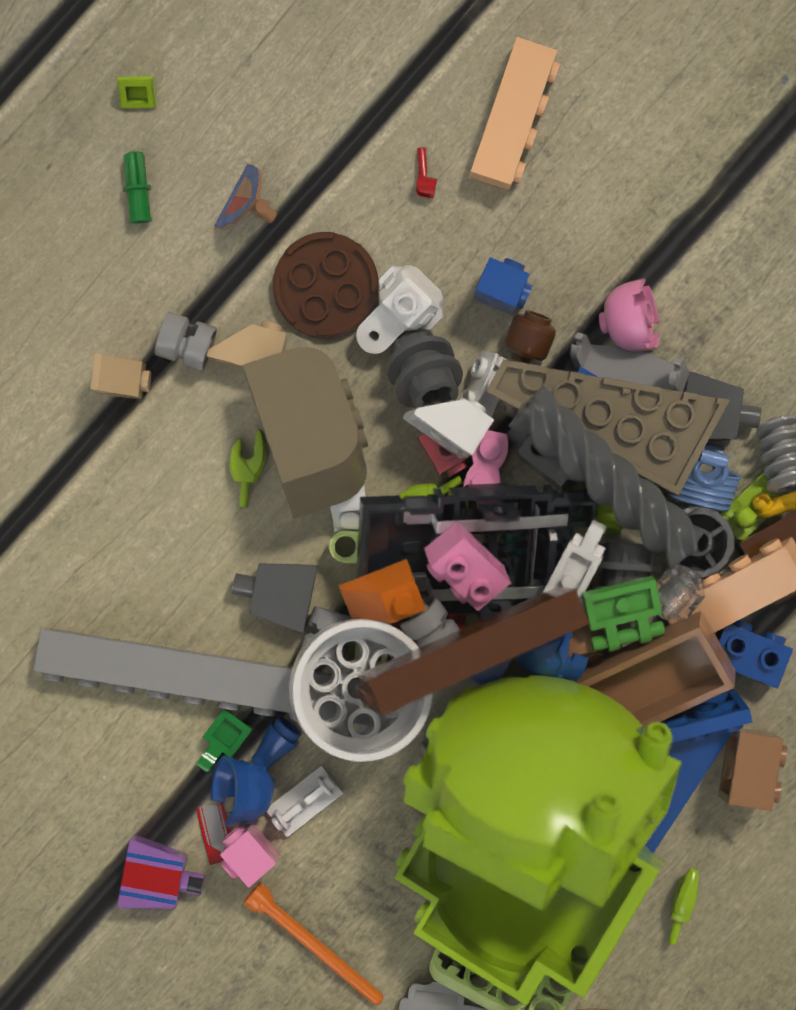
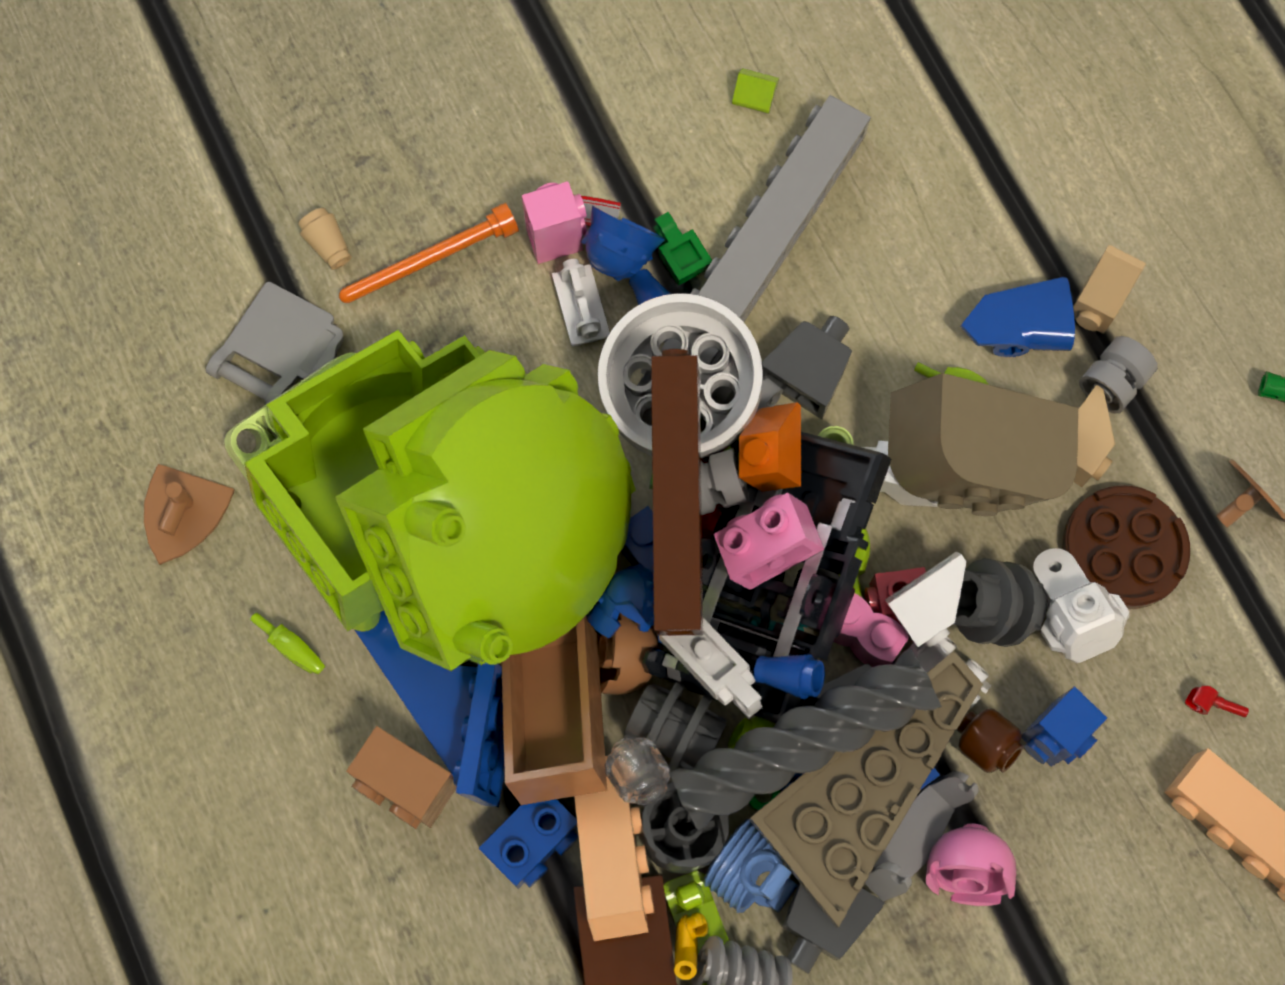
camera: 110 degrees right, 15 degrees down
(44, 738) = (755, 90): none -> lime slope
(156, 876) = (572, 133): torso -> none
(166, 434) = (1024, 319): none -> blue panel
(564, 506) = (792, 674): none -> blue cone
(622, 604) = (653, 697): bright green plate -> none

